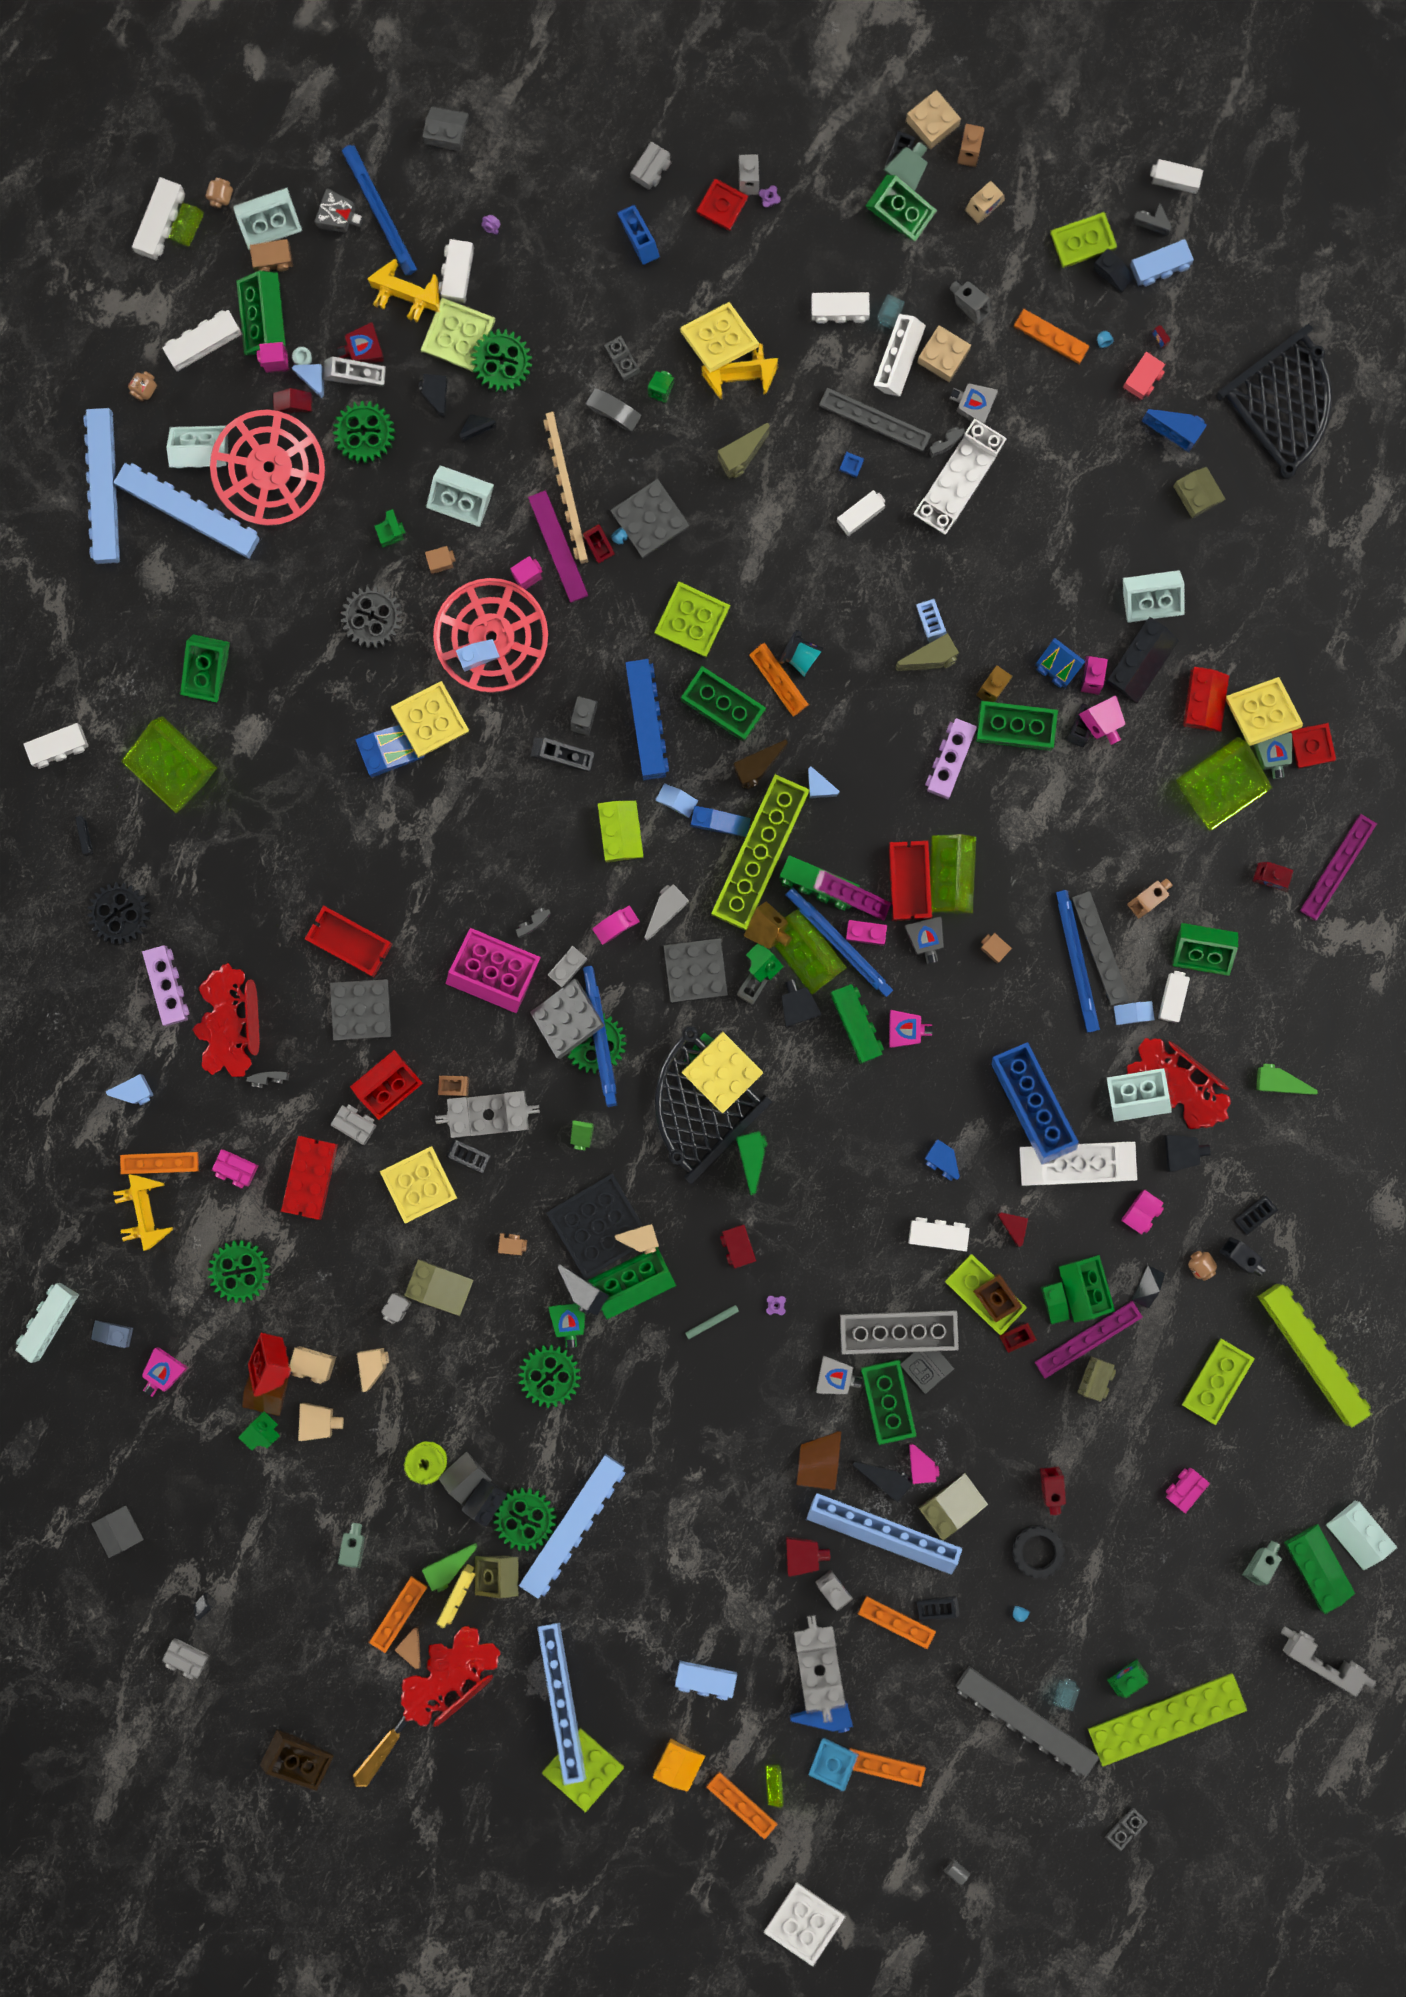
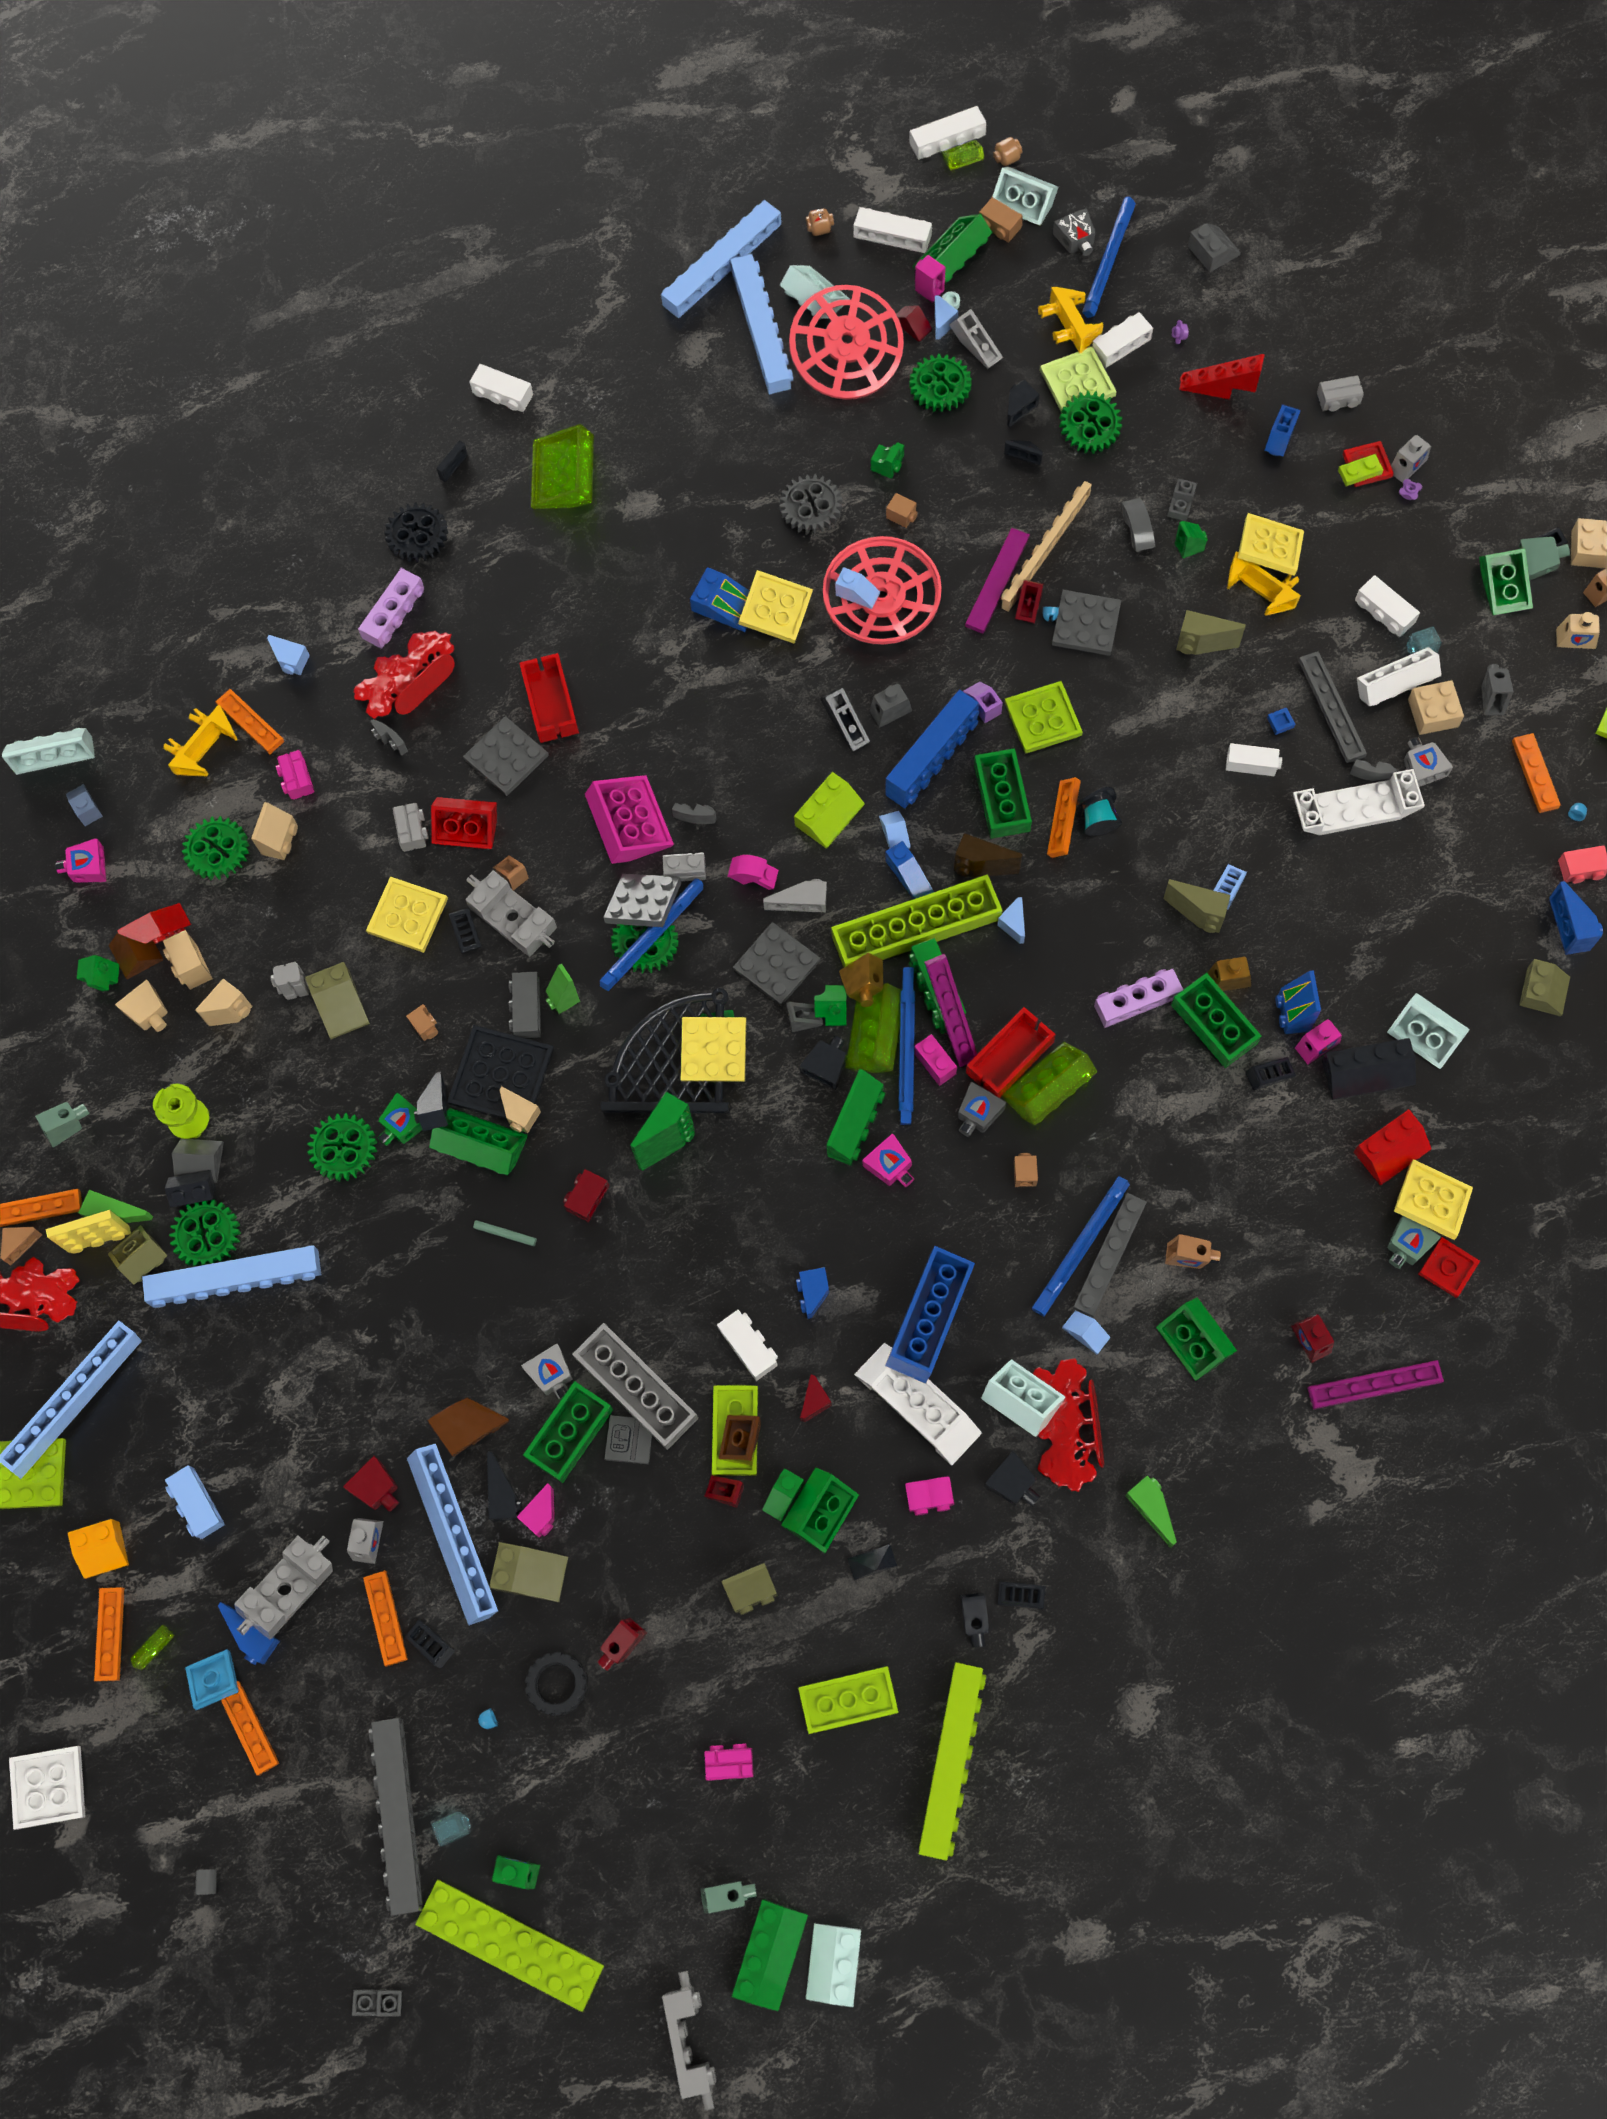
camera: 50 degrees right, 15 degrees down
(204, 667) = (657, 430): green slope -> none
(270, 1221) = (274, 832): none -> tan slope
(309, 1177) = (337, 832): red piece -> none
(362, 345) = (1002, 328): dark red torso -> none
(459, 495) = (962, 482): light aqua slope -> none
(527, 572) = (954, 571): dark pink brick -> none
(560, 236) = (1221, 378): none -> red slope
(564, 1165) = (525, 1005): none -> dark grey brick
(640, 648) = (989, 703): none -> medium lavender slope
(724, 217) = (1360, 470): none -> lime plate
(772, 1309) = (565, 1276): medium lavender plate -> none
(1088, 1339) = (779, 1553): magenta tile -> none
(1104, 719) = (1292, 1082): torso -> none
(1174, 997) = (1131, 1350): white brick -> none
(1202, 1265) = (934, 1589): medium nougat head -> none
(1224, 783) = (1343, 1226): clear neon green slope -> none

